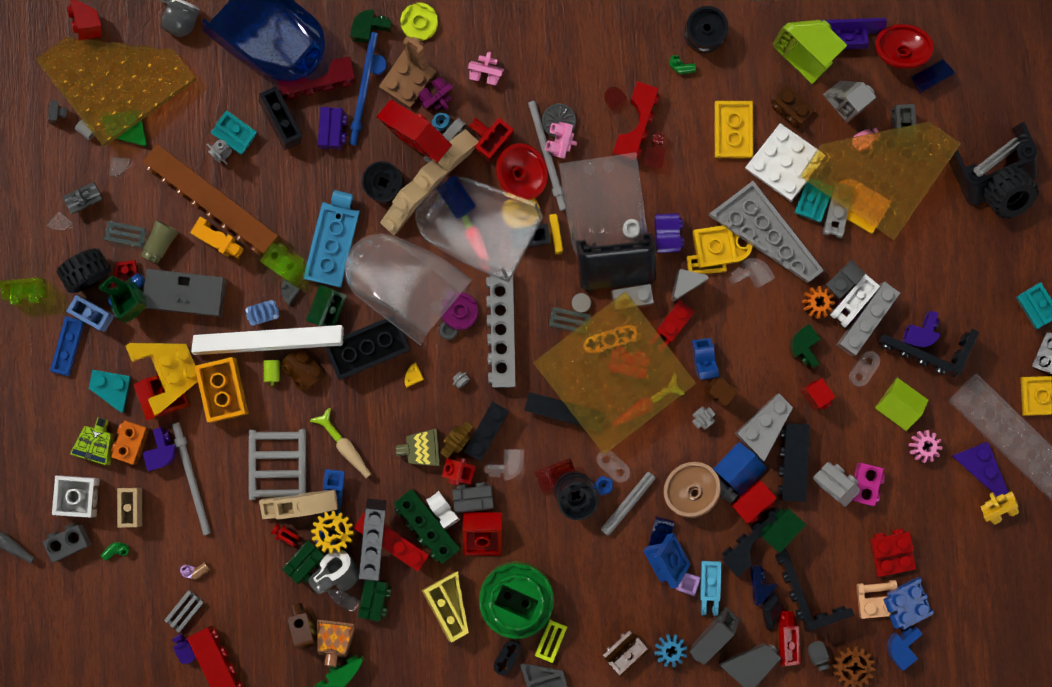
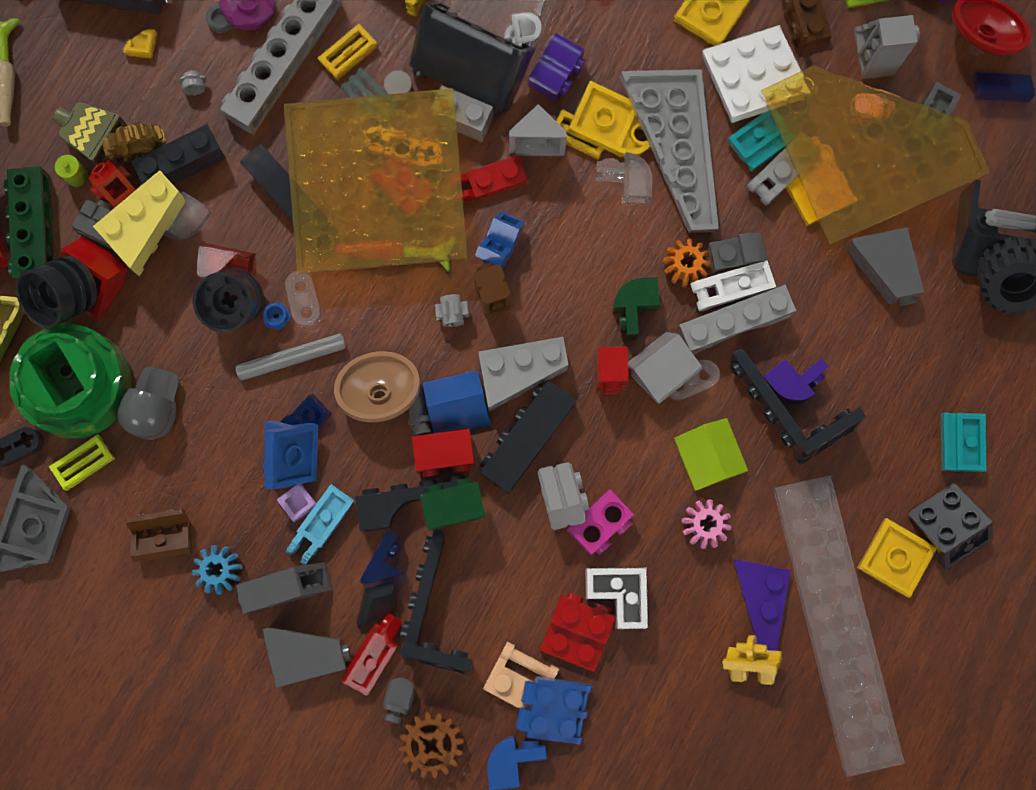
camera: 35 degrees right, 5 degrees down
(428, 478) = (71, 170): none -> lime piece
(442, 510) = (62, 212): white leg -> none
(477, 555) = (56, 291): none -> black wheel
(497, 485) = (141, 220): none -> light yellow wedge
(533, 316) = (353, 60): none -> yellow tile
(569, 583) = (151, 406): none -> dark grey piece
(641, 225) = (526, 27): none -> white tile
(844, 372) = (664, 366): none -> light grey slope
(904, 512) = (628, 589): none -> white brick
(934, 228) = (889, 264): none -> dark grey slope

